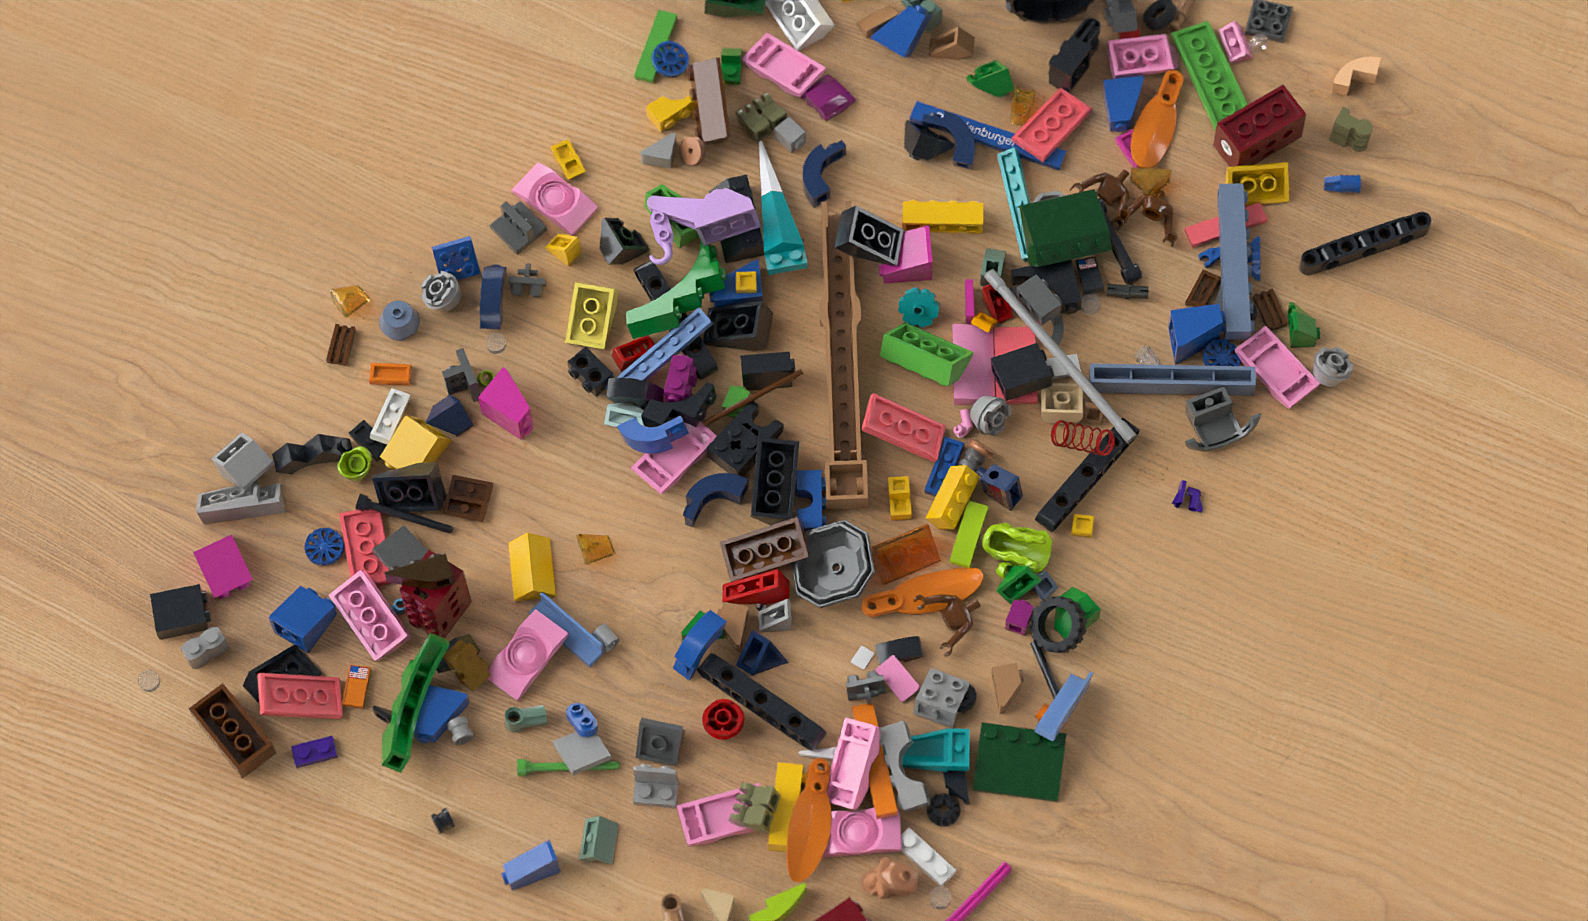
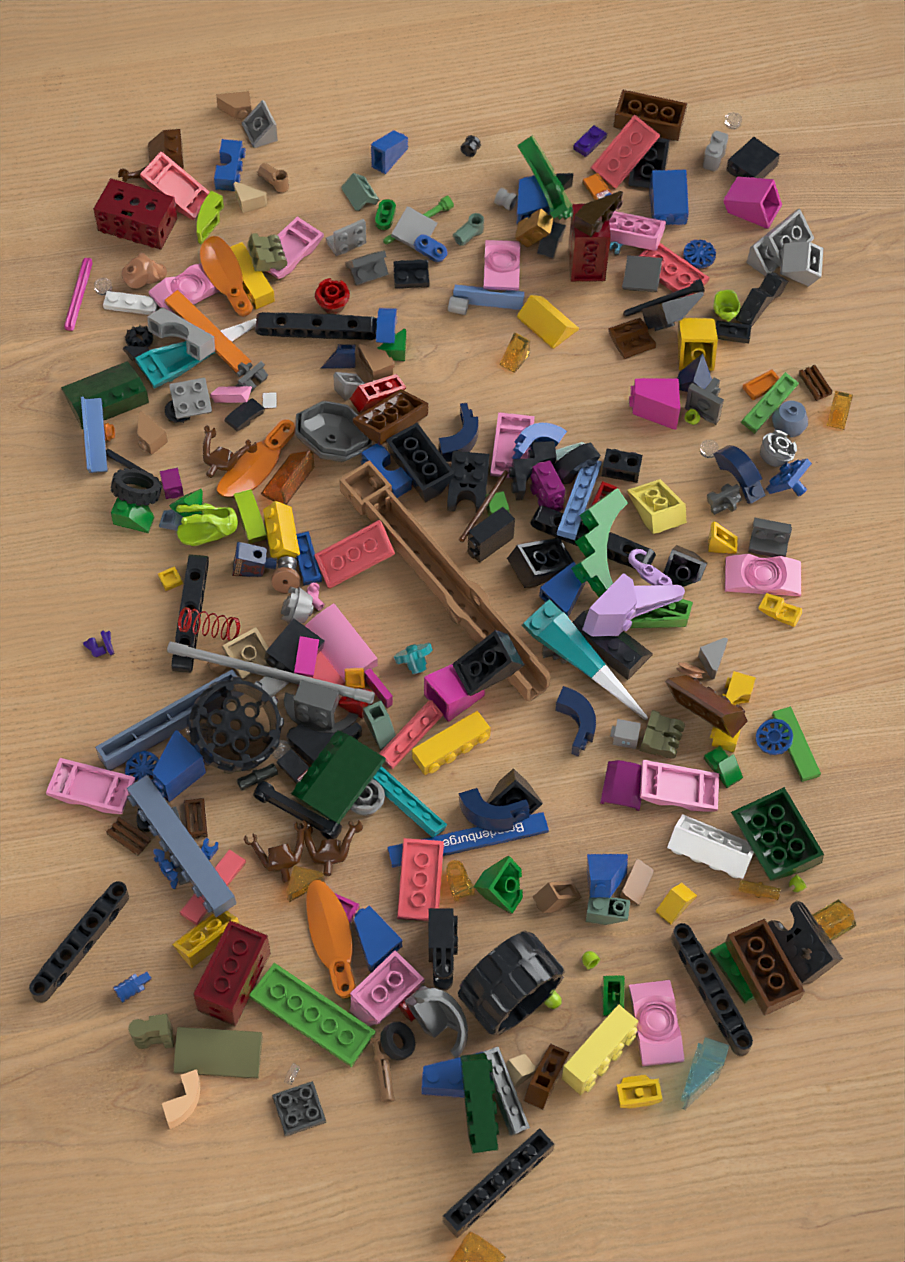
camera: 140 degrees right, 5 degrees down
(390, 416) = (733, 350): white plate -> none
(402, 348) = (769, 402): none -> bright green tile
(593, 794) = (385, 218): none -> green plate
(623, 705) = (411, 274): none -> black bracket
(746, 282) = (560, 586): yellow tile -> none
(852, 763) = (219, 313): bright pink slope -> none
(899, 498) = (322, 516): yellow slope -> none
(925, 354) = (380, 621): bright green slope -> none
(971, 245) = (411, 734): none -> coral tile
(1018, 348) = (306, 656): none -> dark pink tile
(1124, 320) = (263, 699): none -> black wheel
(1215, 422) = (112, 707): dark grey piece -> none
(1235, 43) = (314, 1066): bright pink slope -> none
(1301, 327) = (89, 829): green slope -> none
(1316, 100) = (218, 1052): none -> olive slope
(1332, 366) = (42, 808): light grey cone -> none

